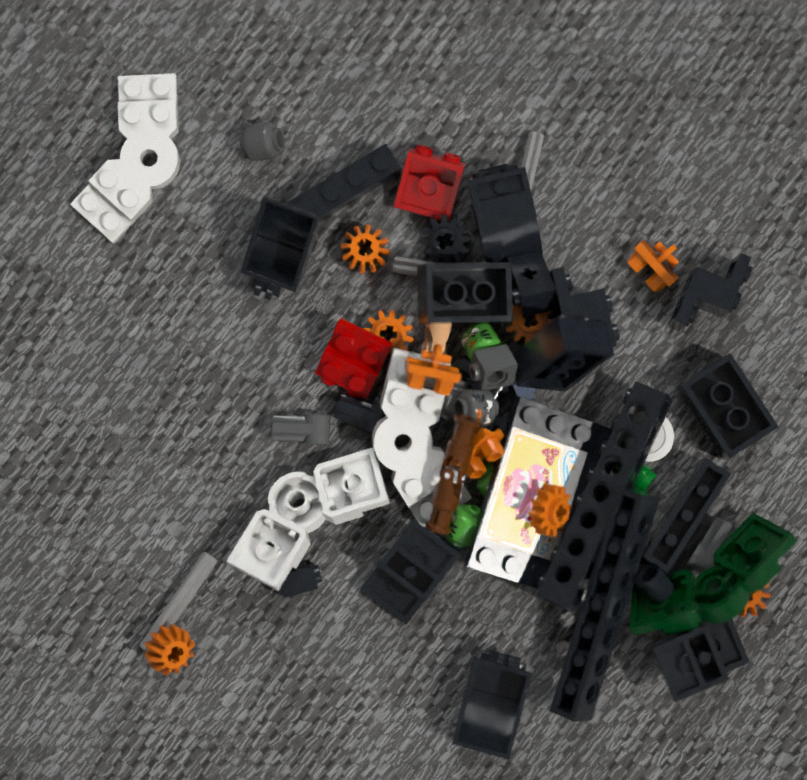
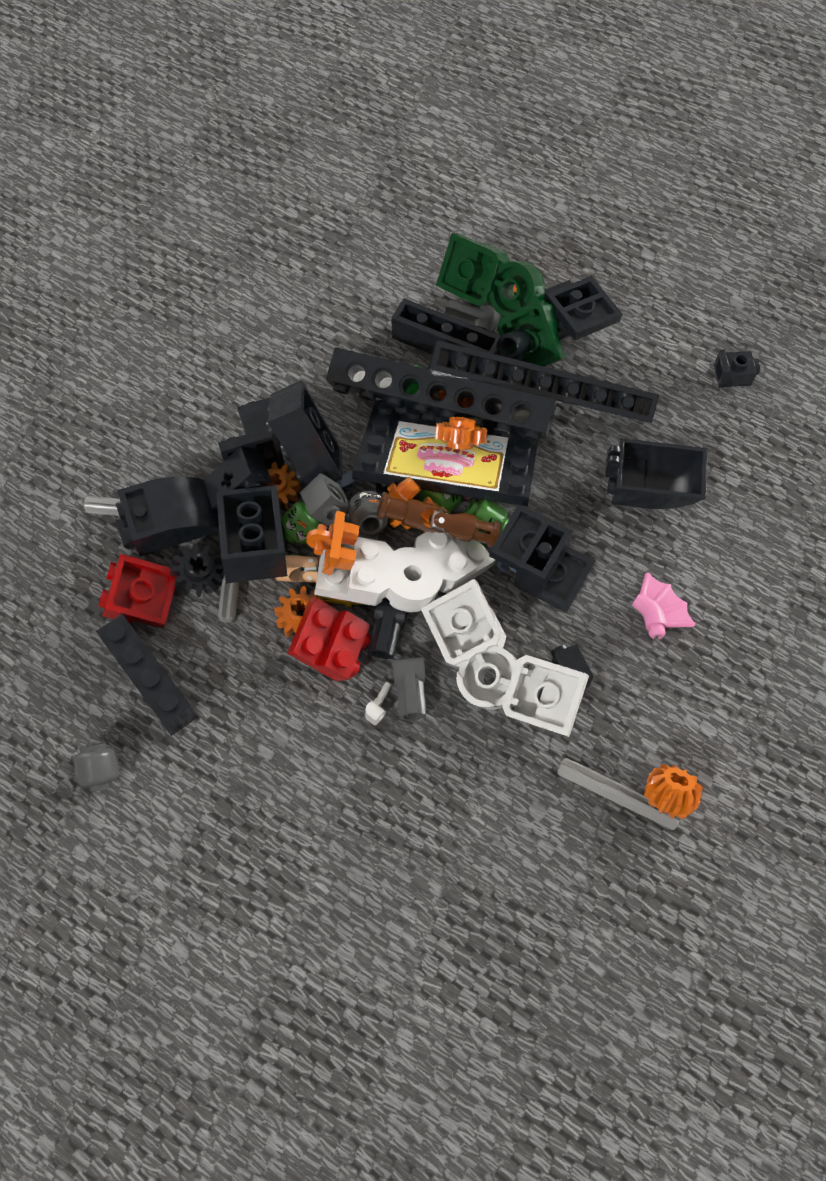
camera: 90 degrees left, 20 degrees down
(124, 185) = (151, 915): white plate -> none
(279, 247) = (212, 723): black piece -> none
(283, 393) = (374, 712): none -> white hand
(354, 681) = (661, 607): none -> bright pink arm
(374, 248) = (212, 656): orange gear -> none
(663, 273) = (203, 396): orange hips -> none
(711, 292) = (235, 335): black bracket -> none
(727, 407) = (341, 314): black brick -> none

